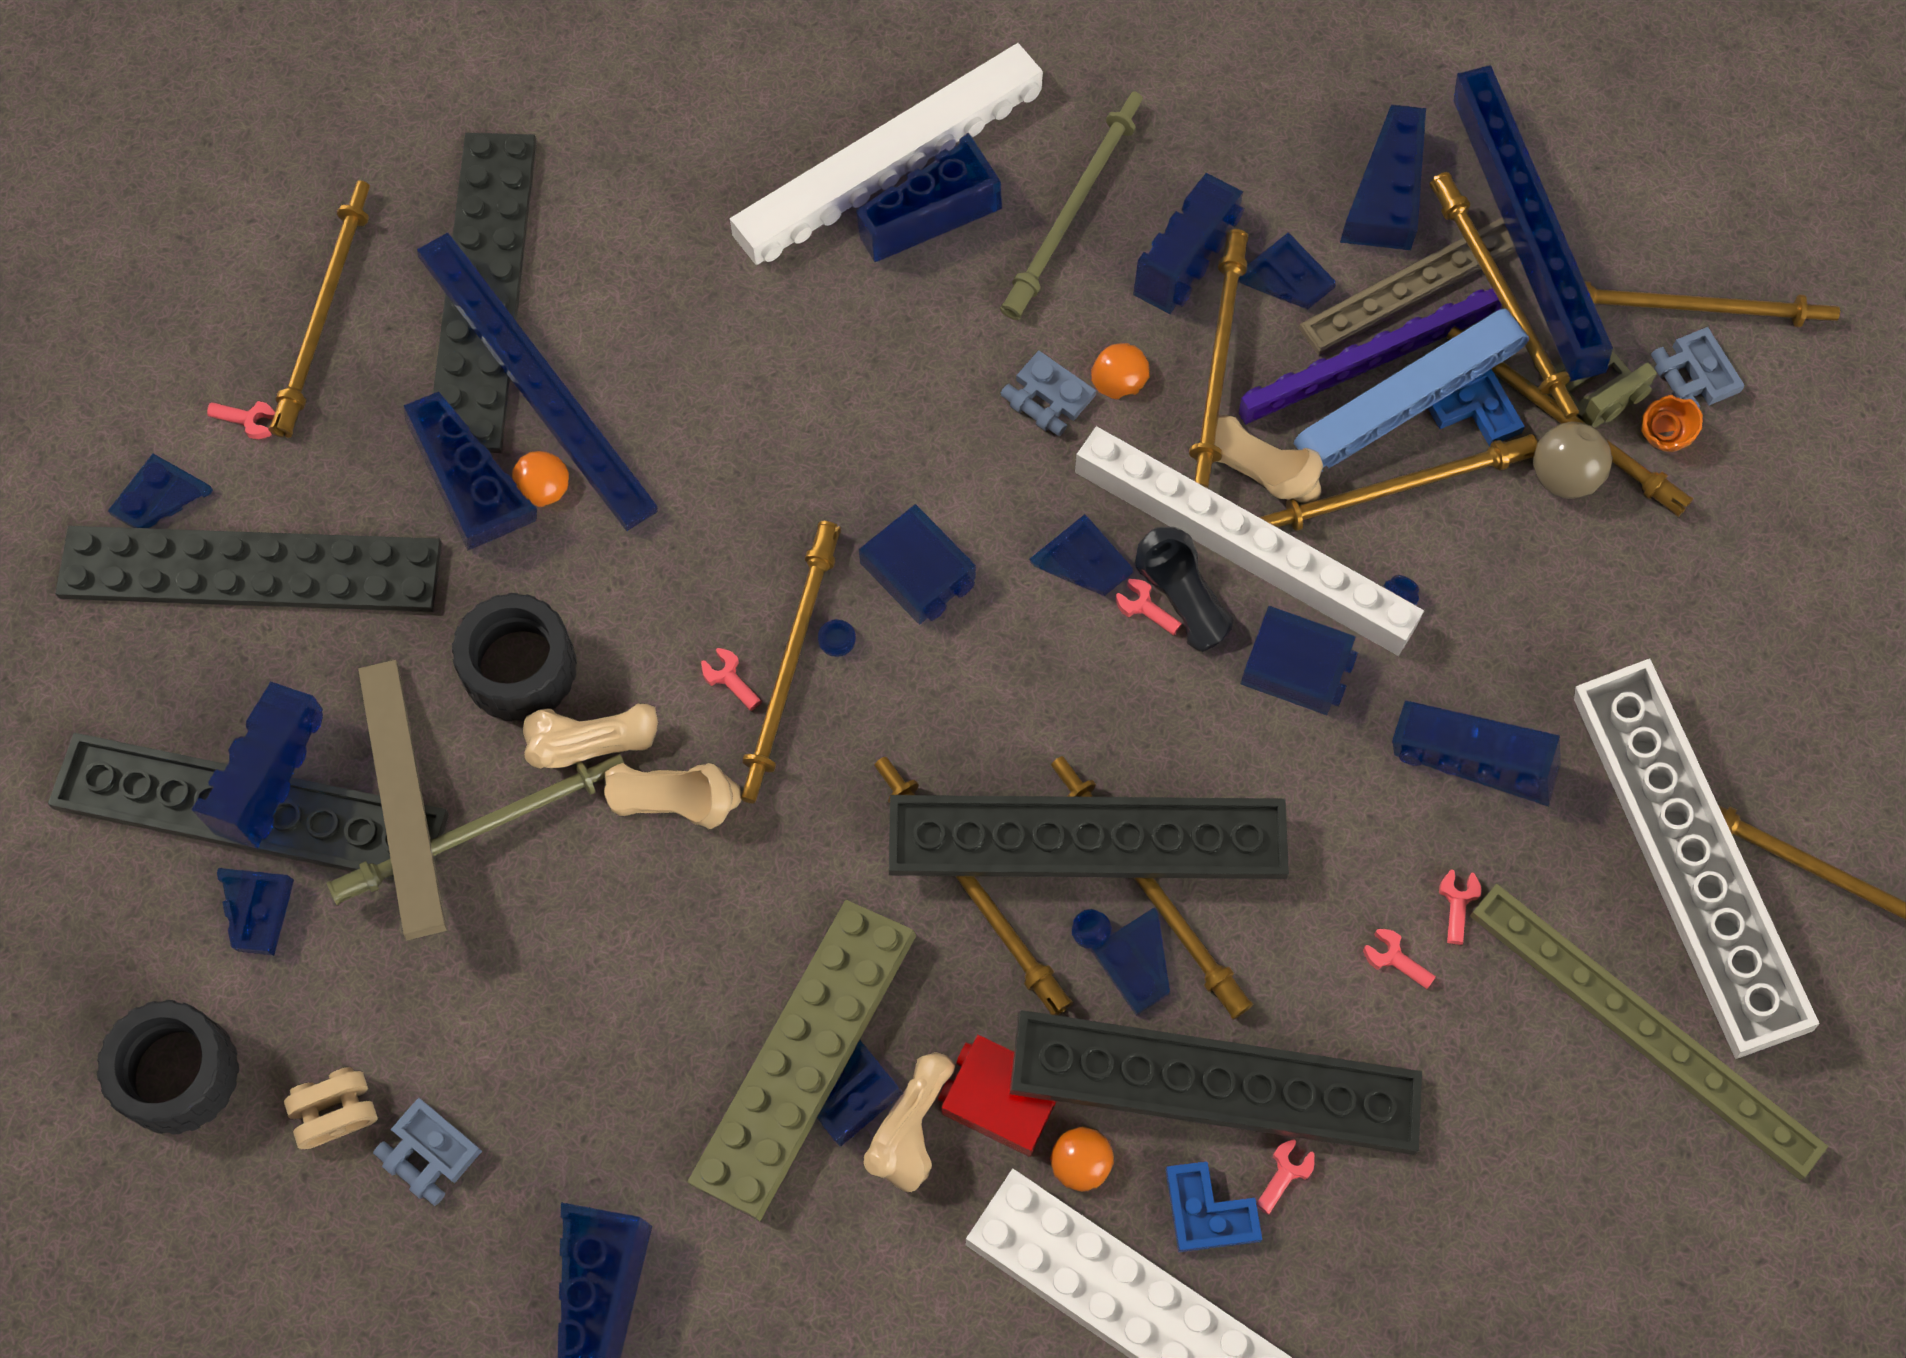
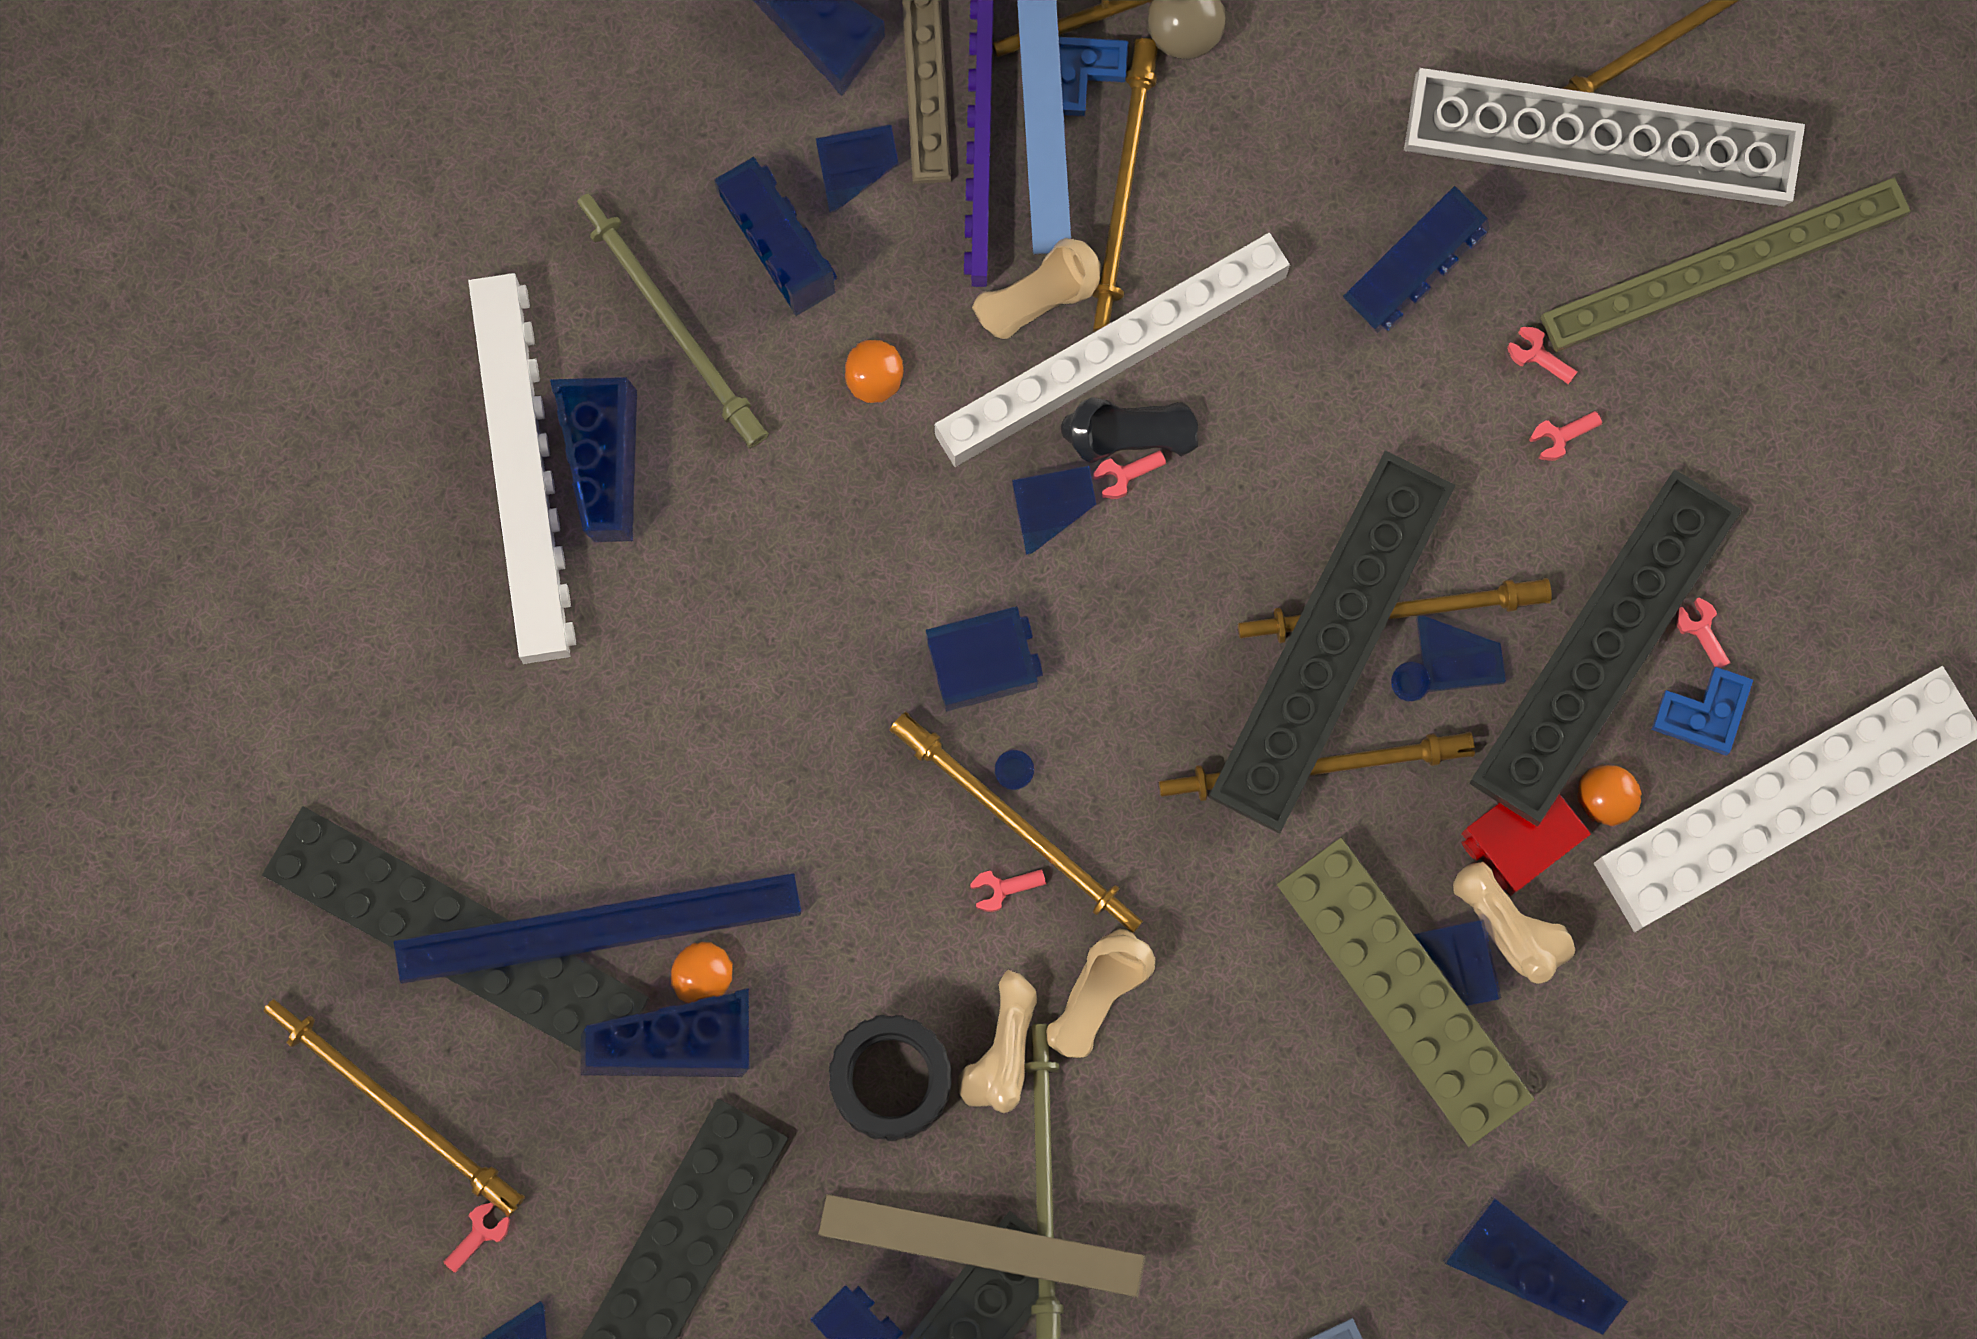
camera: 65 degrees left, 10 degrees up
(1055, 386) = (859, 438): sand blue plate -> none
(1231, 266) = (826, 210): pearl gold bar -> none
(1299, 661) = (1252, 366): clear blue brick -> none
(1404, 588) = (1230, 239): clear blue plate -> none

